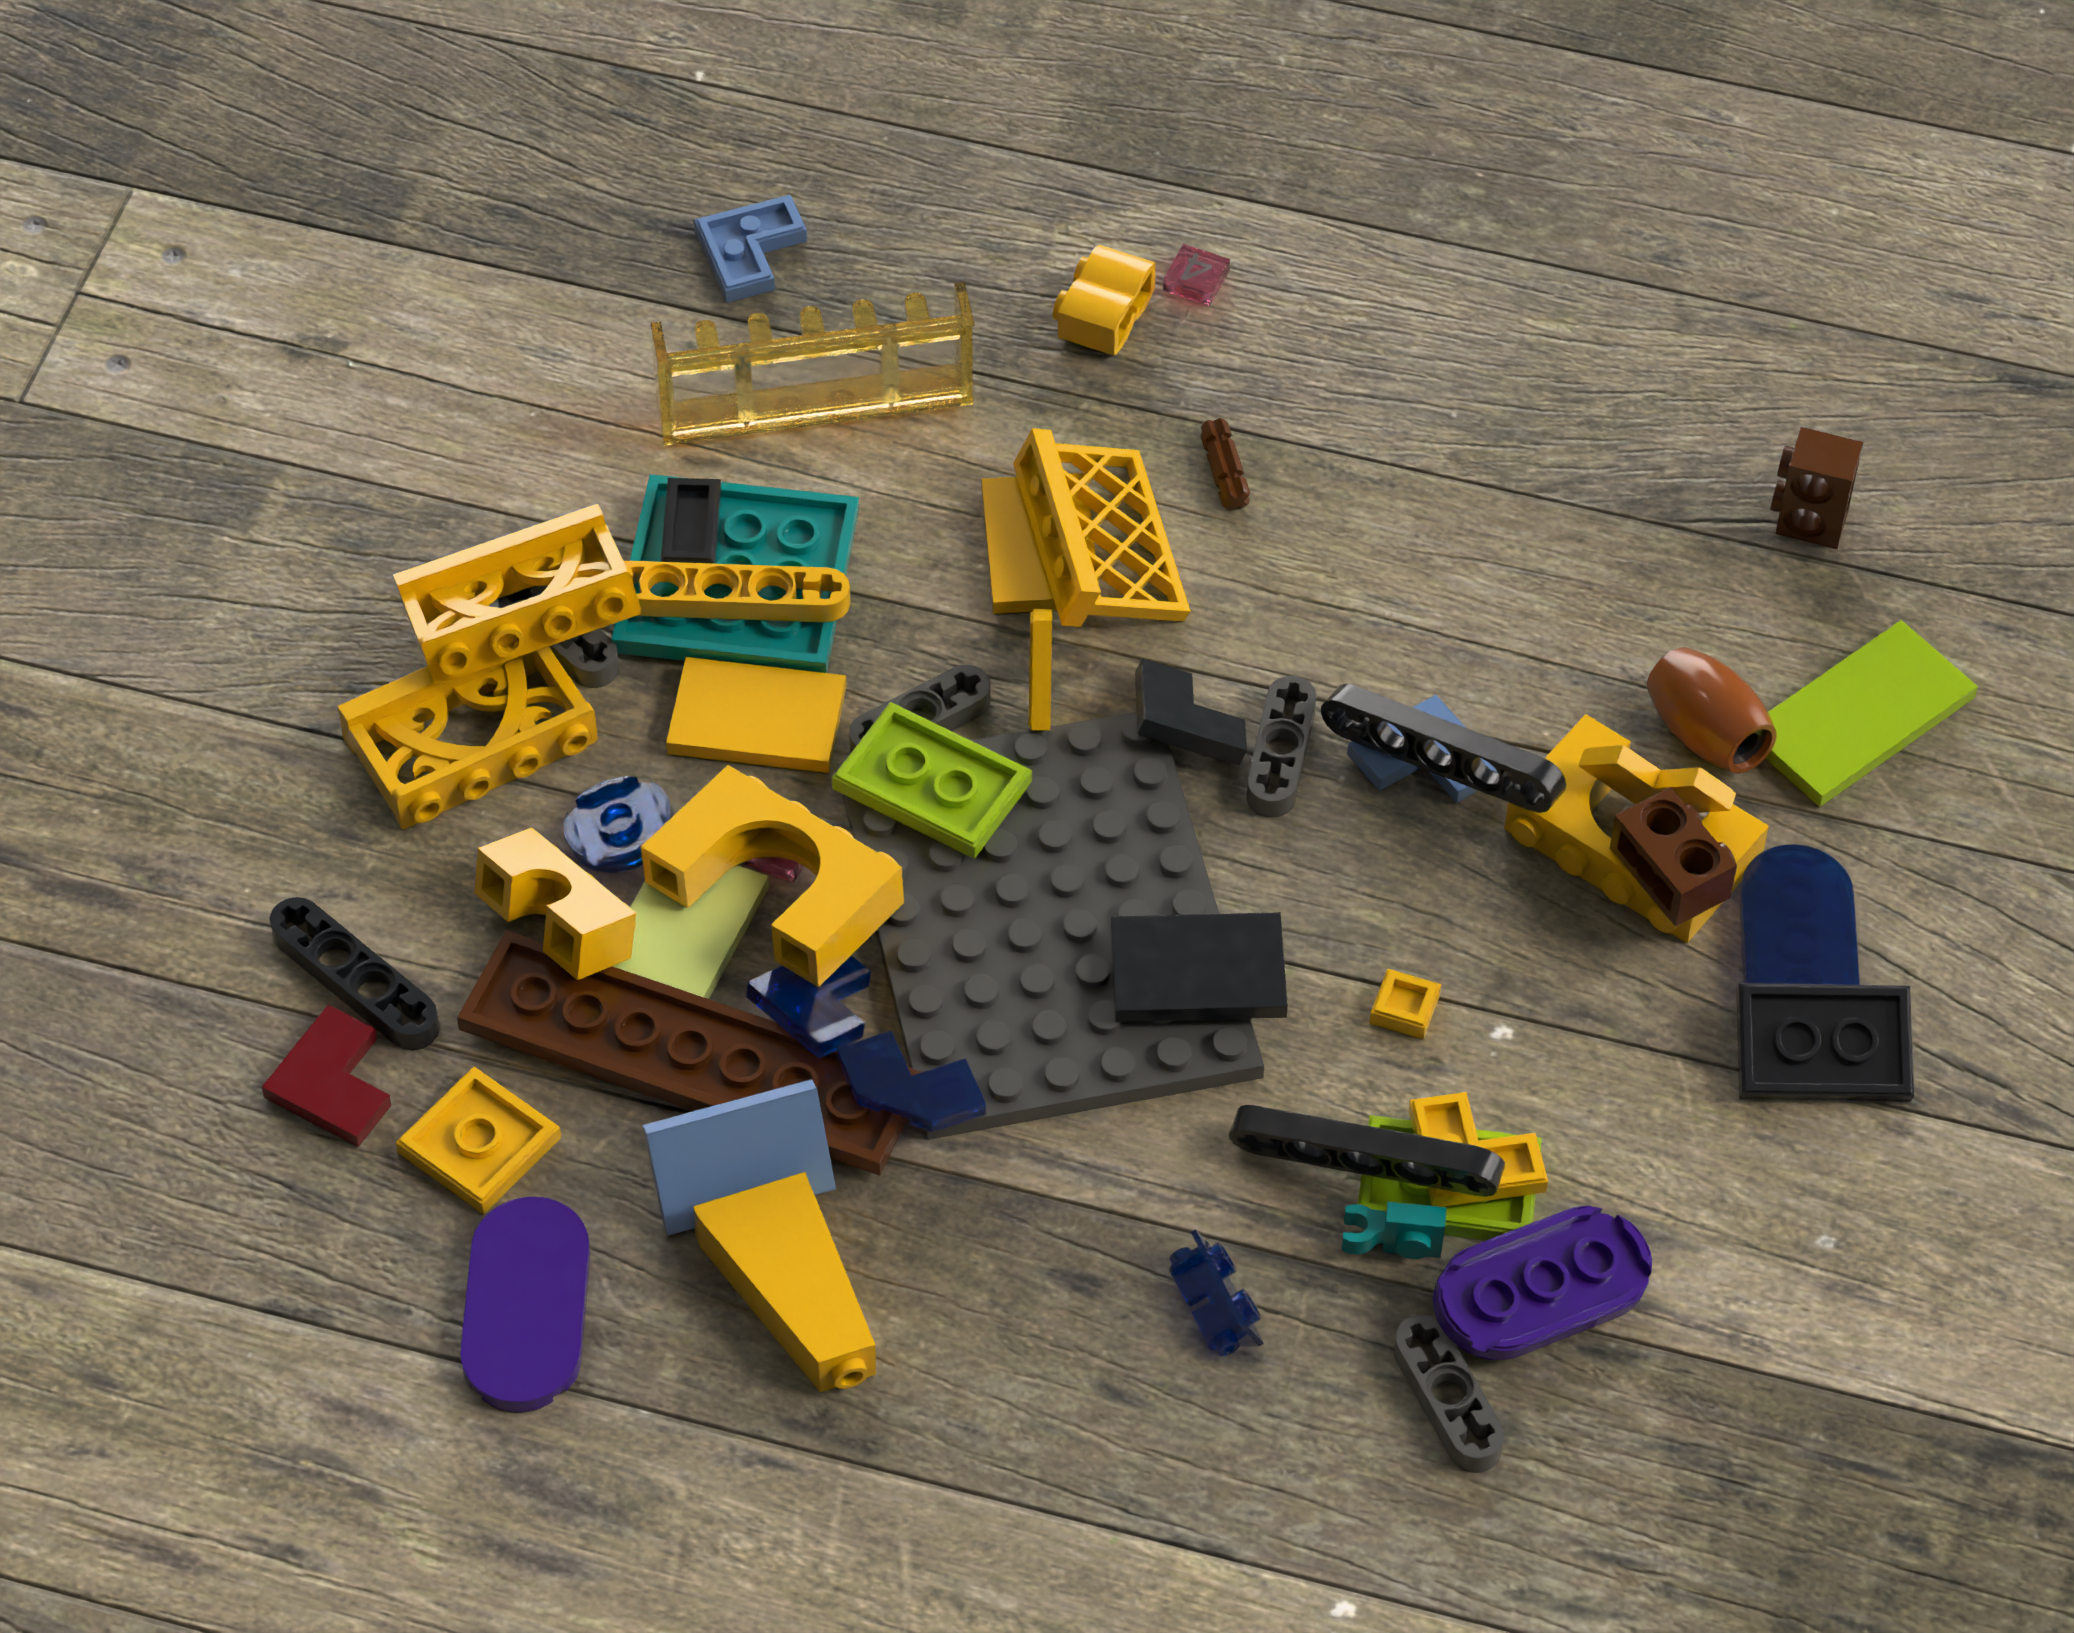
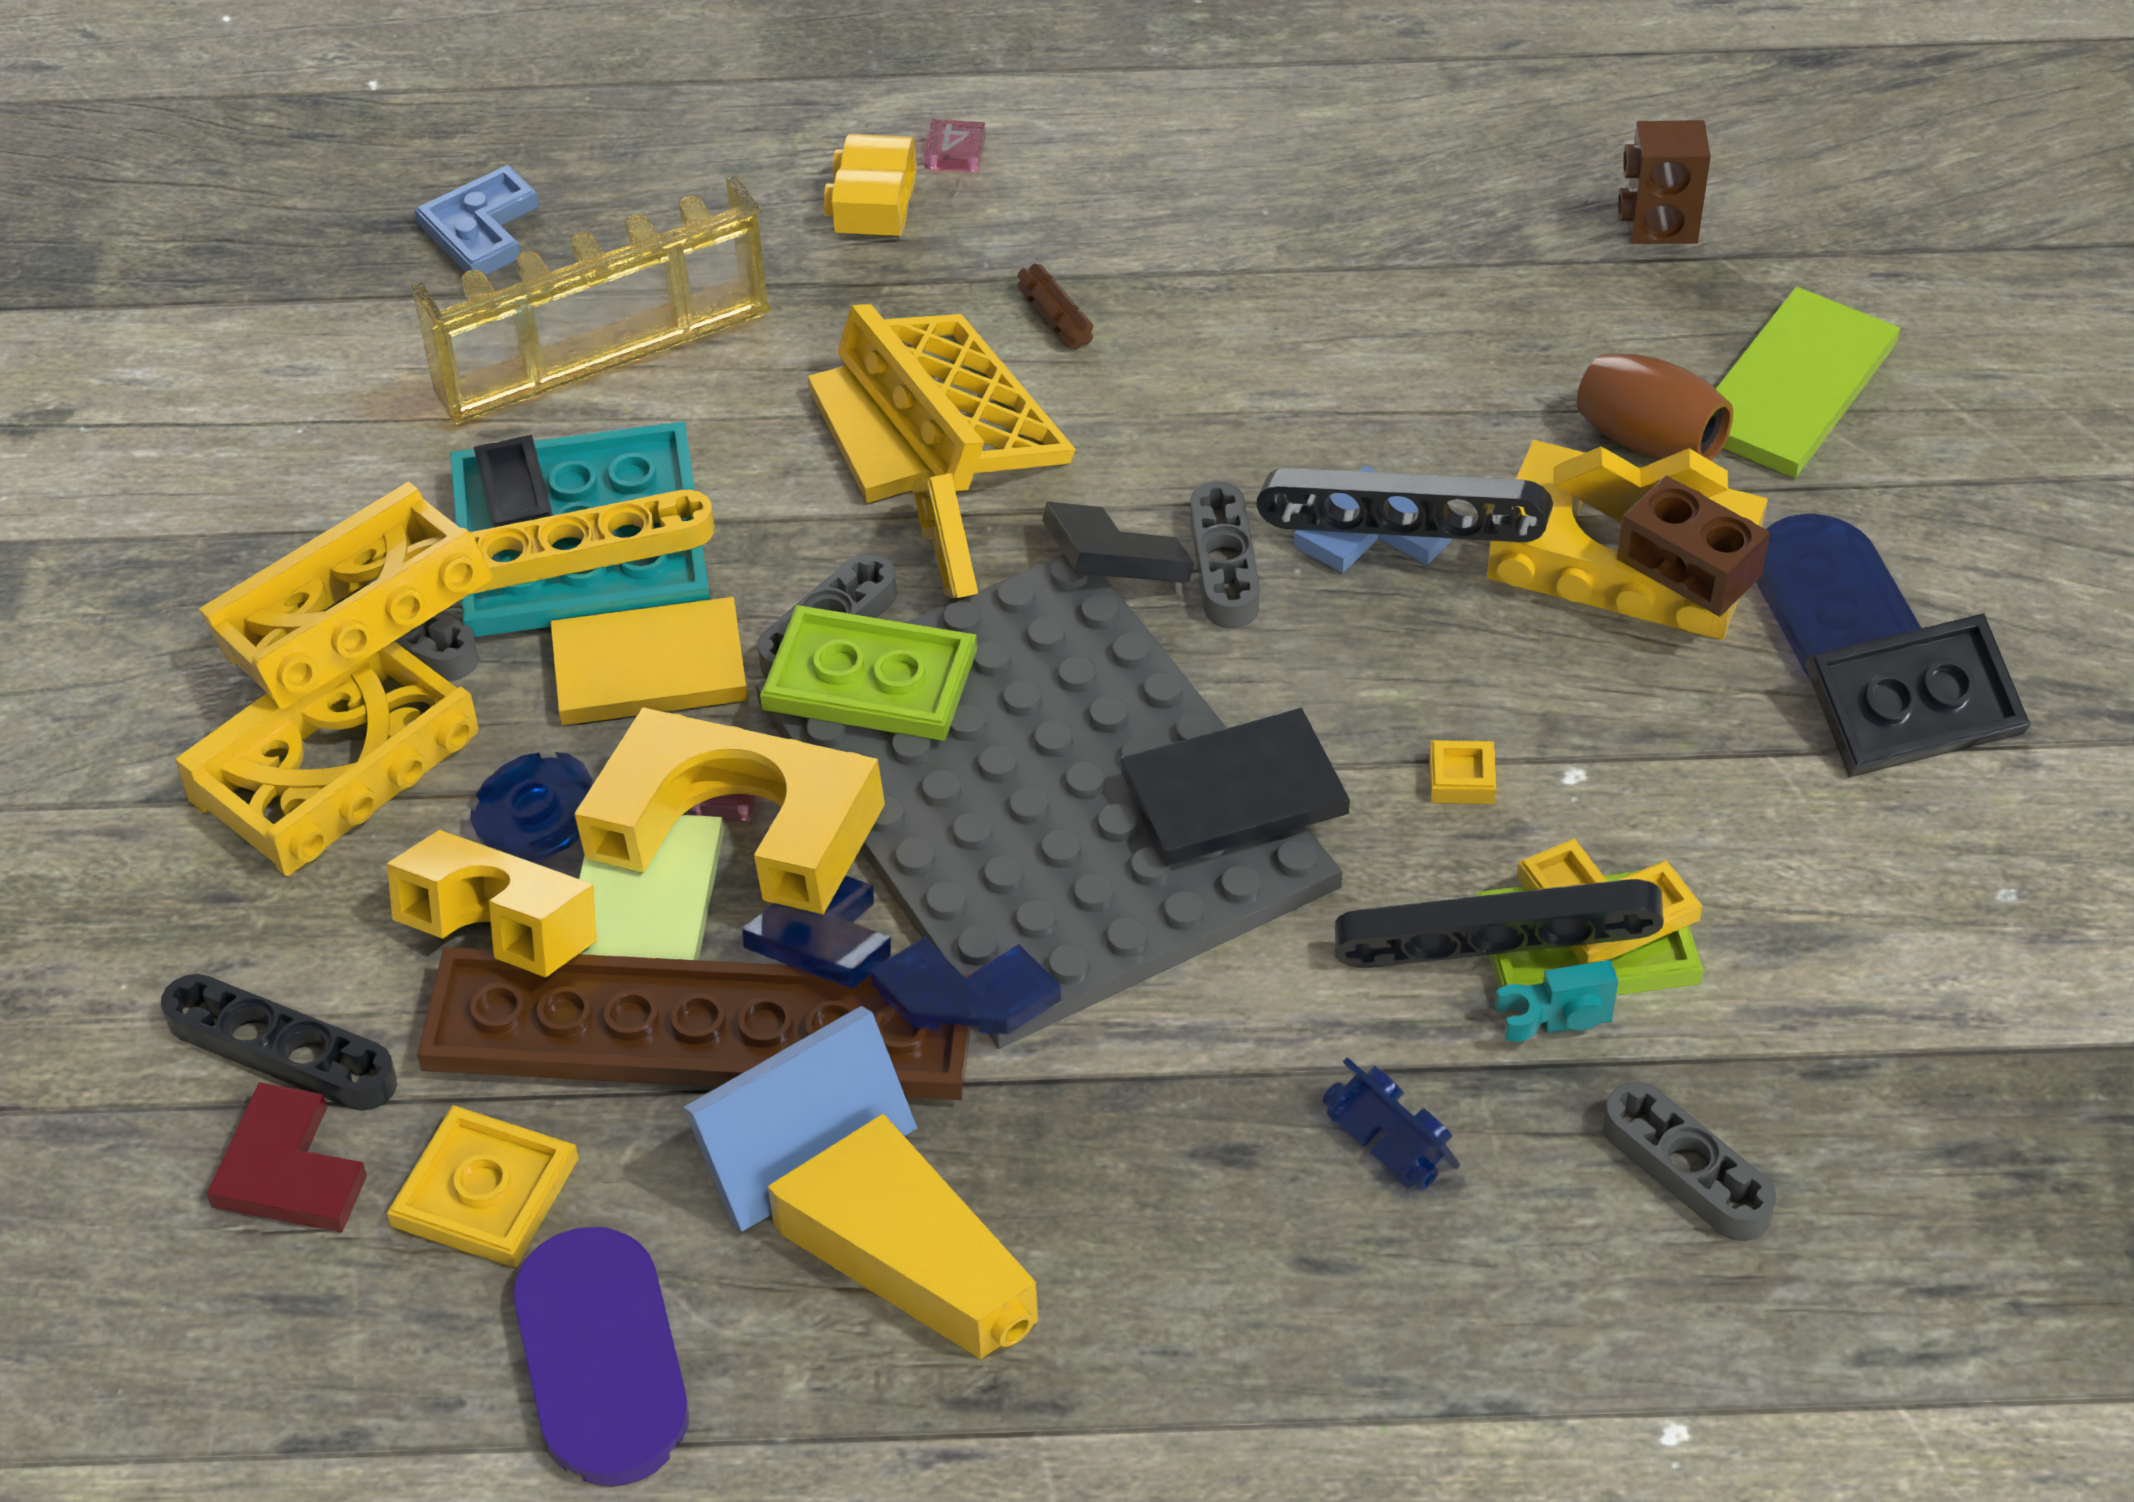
camera: 15 degrees left, 5 degrees down
(1542, 1283) = (1738, 1015): dark purple tile -> none

